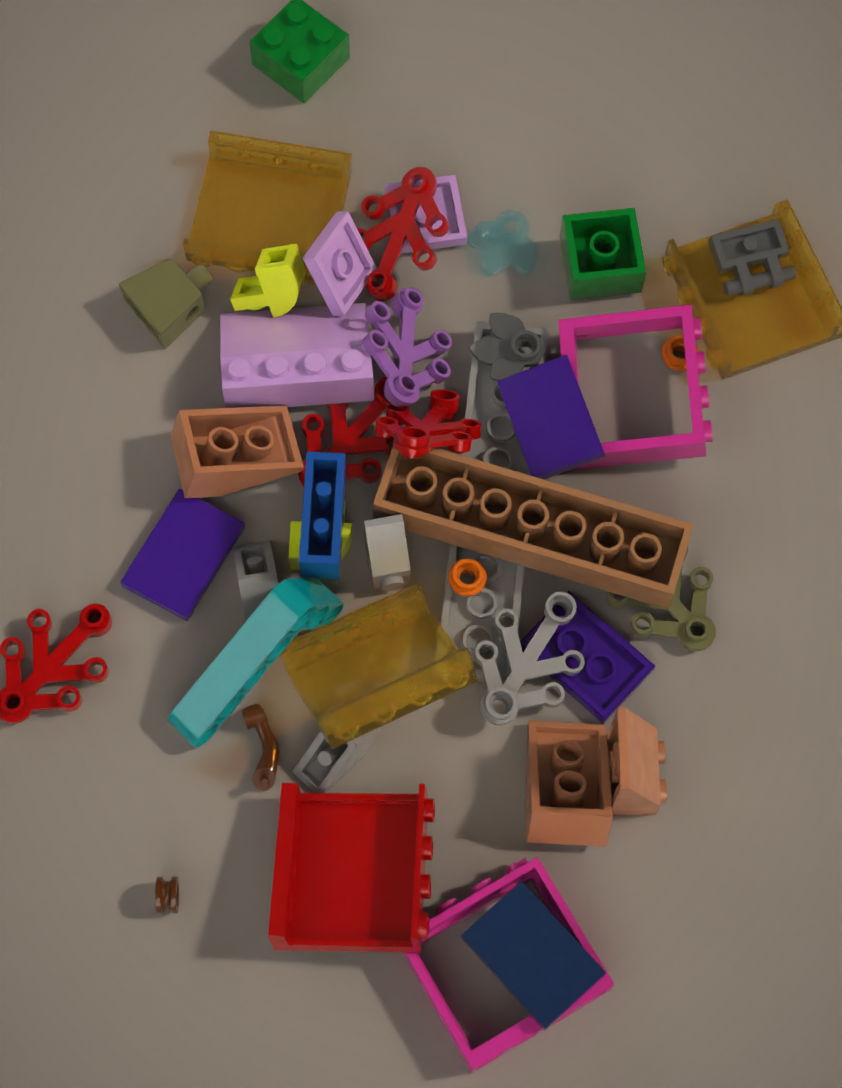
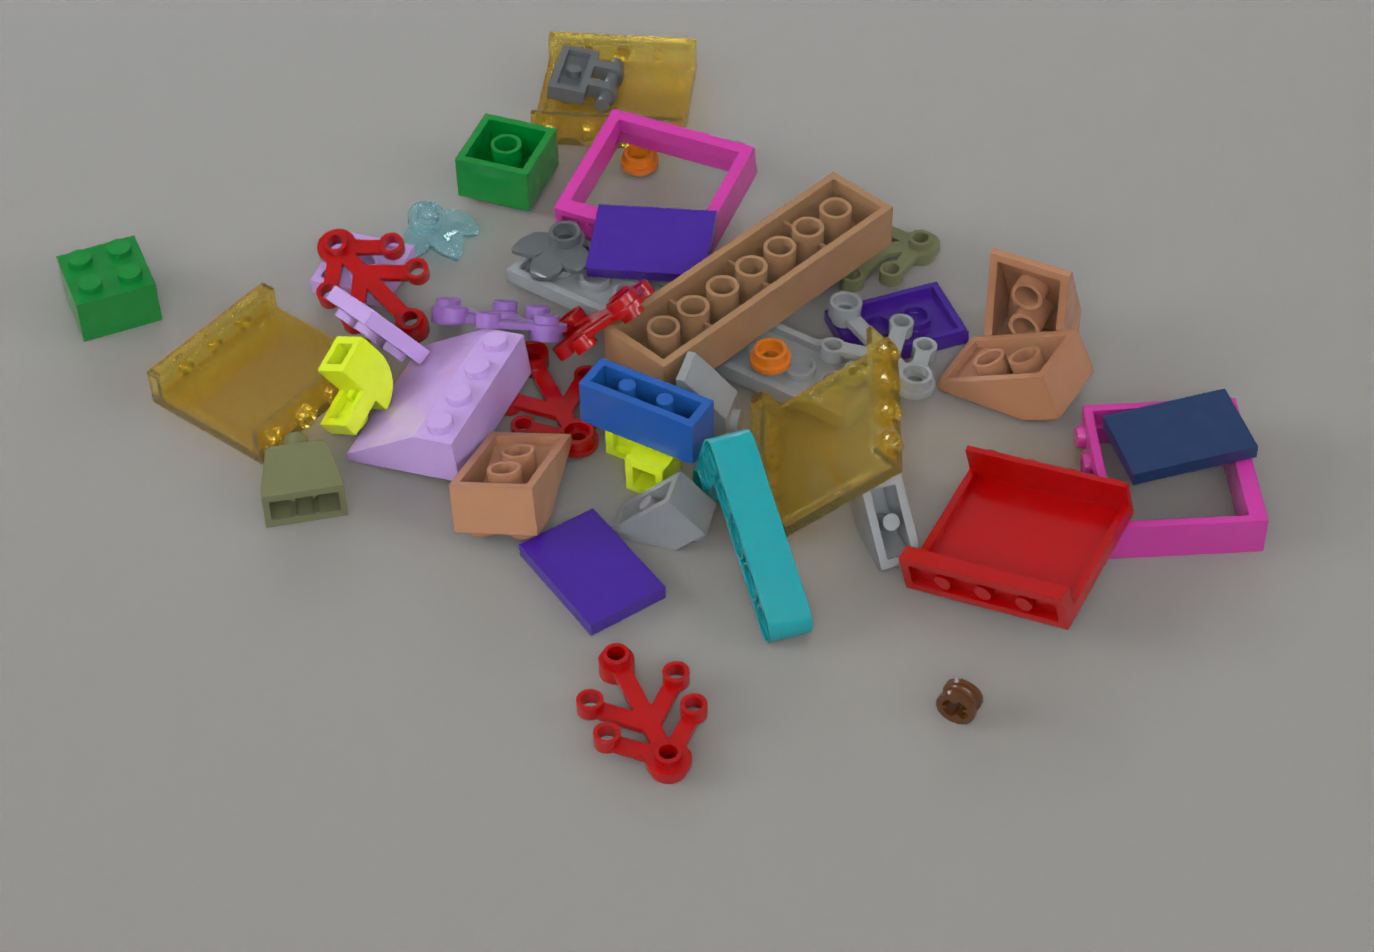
camera: 60 degrees left, 25 degrees down
(265, 772) = (869, 588): reddish brown piece -> none

